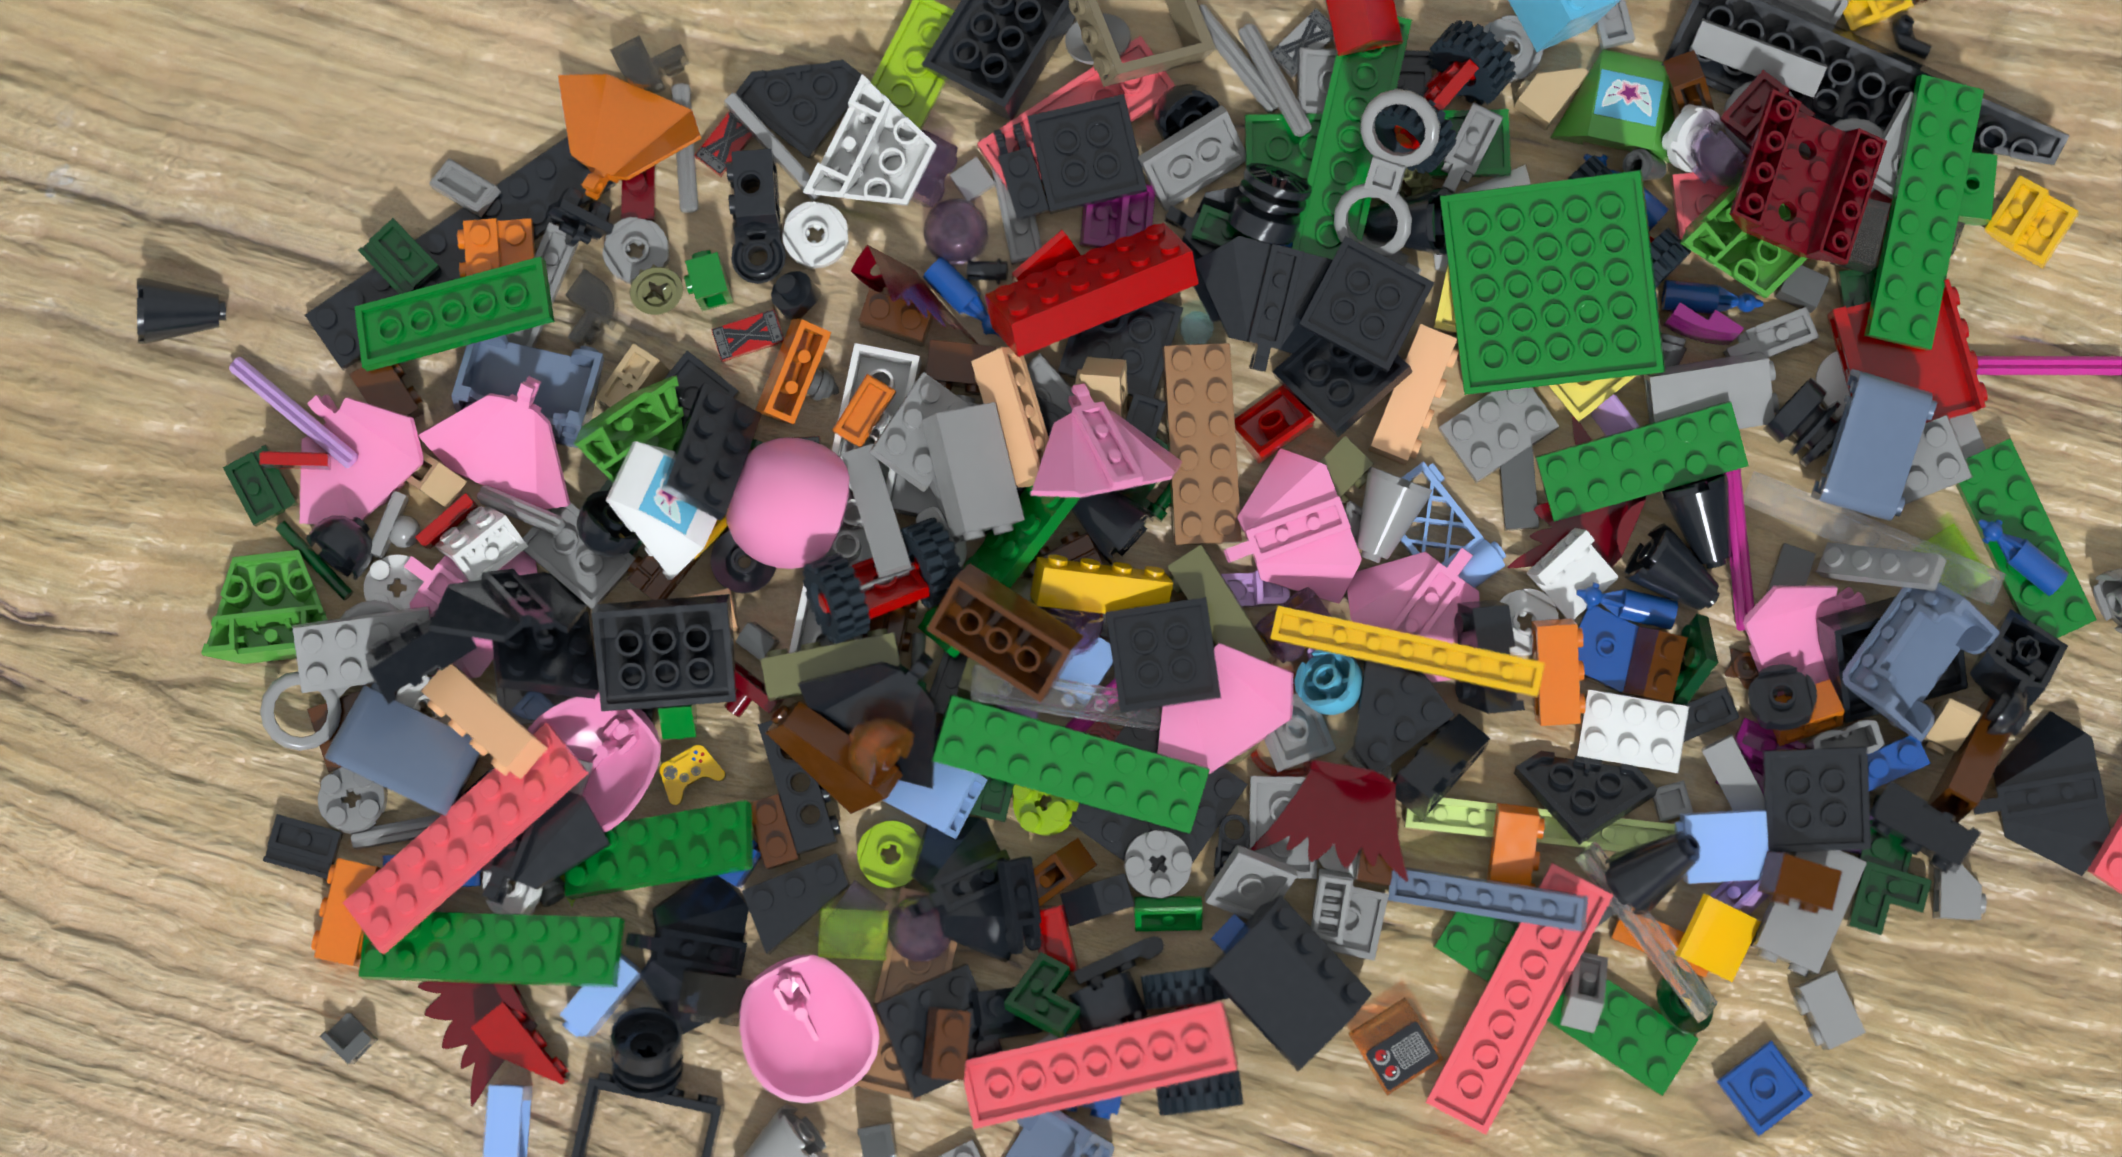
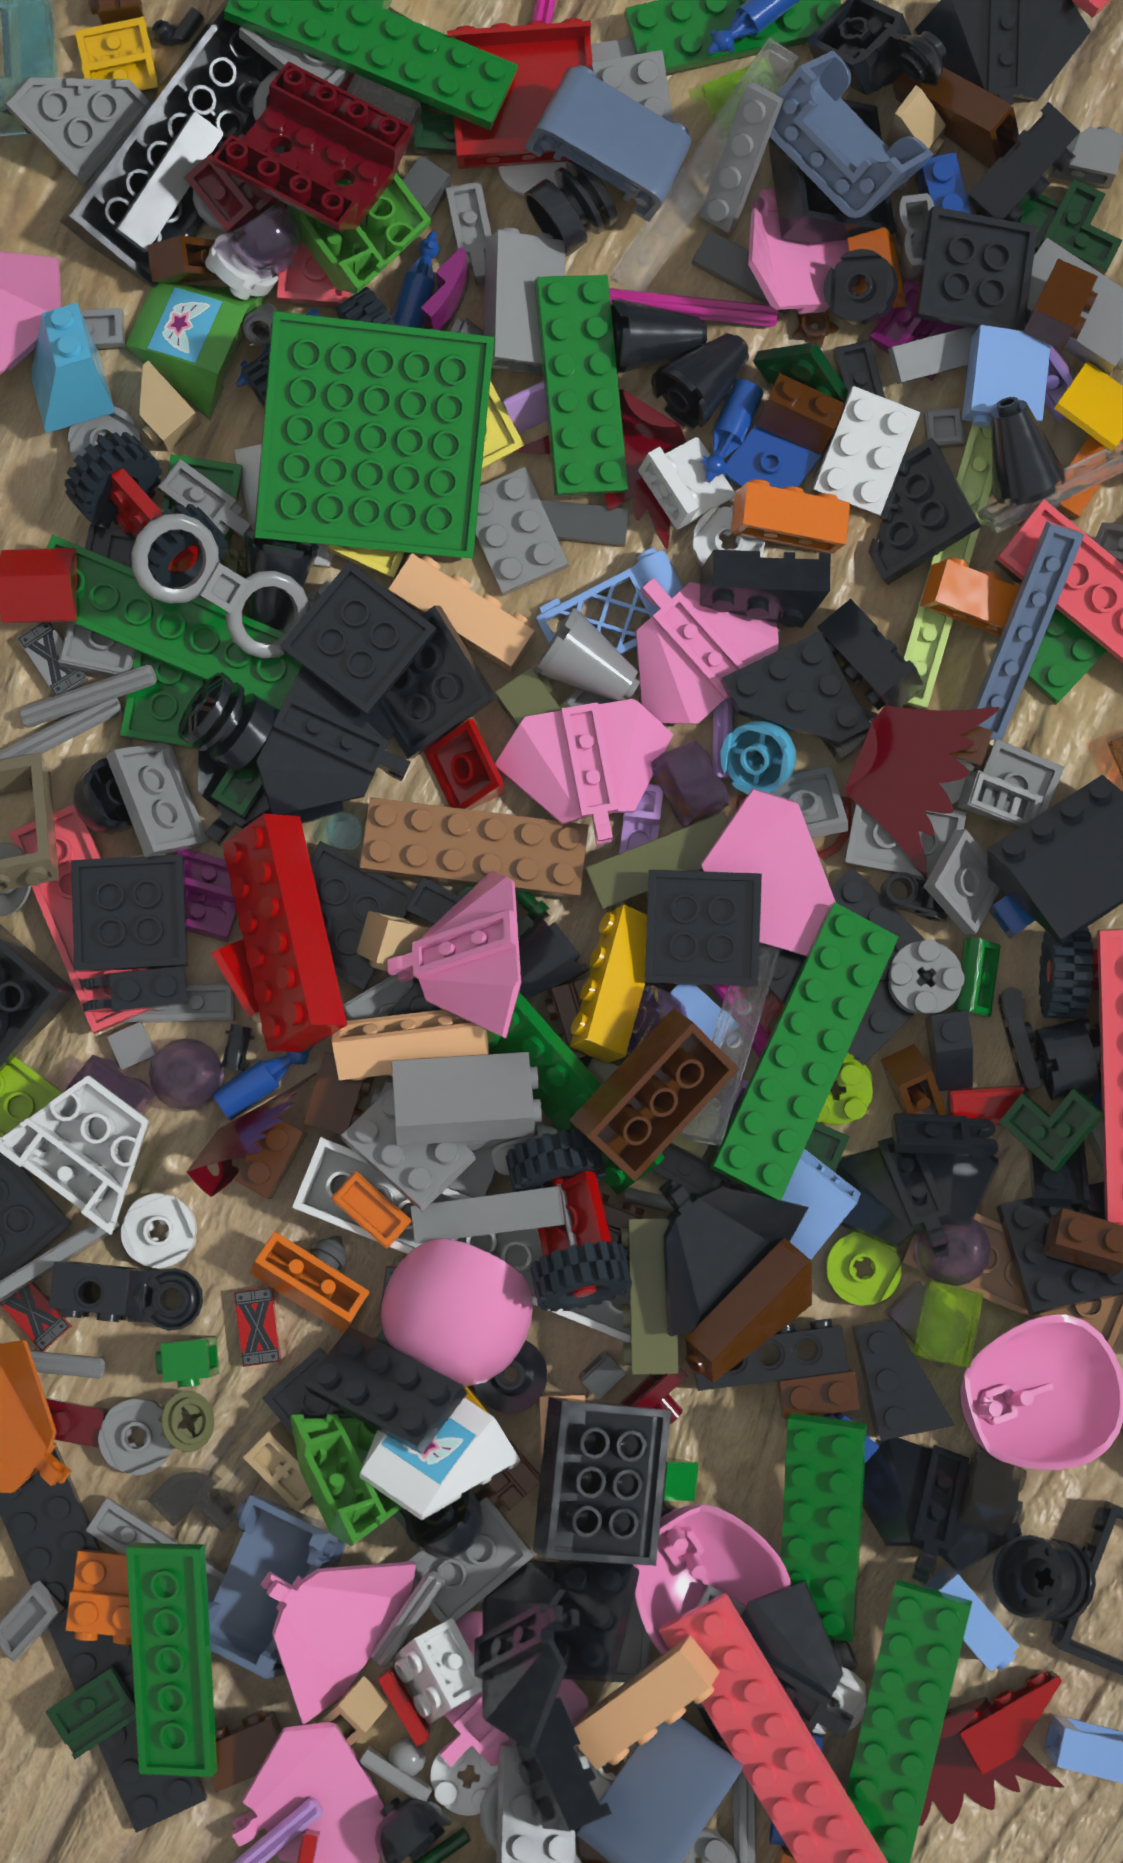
camera: 80 degrees left, 0 degrees up
(532, 706) = (635, 1641): medium blue tile -> none
(577, 222) = (93, 1497): black hips -> none
(687, 769) = (731, 1479): yellow piece -> none
(795, 294) = (222, 1265): black piece -> none
(877, 748) = (755, 1260): clear orange cylinder -> none
(1407, 651) = (748, 663): yellow plate -> none

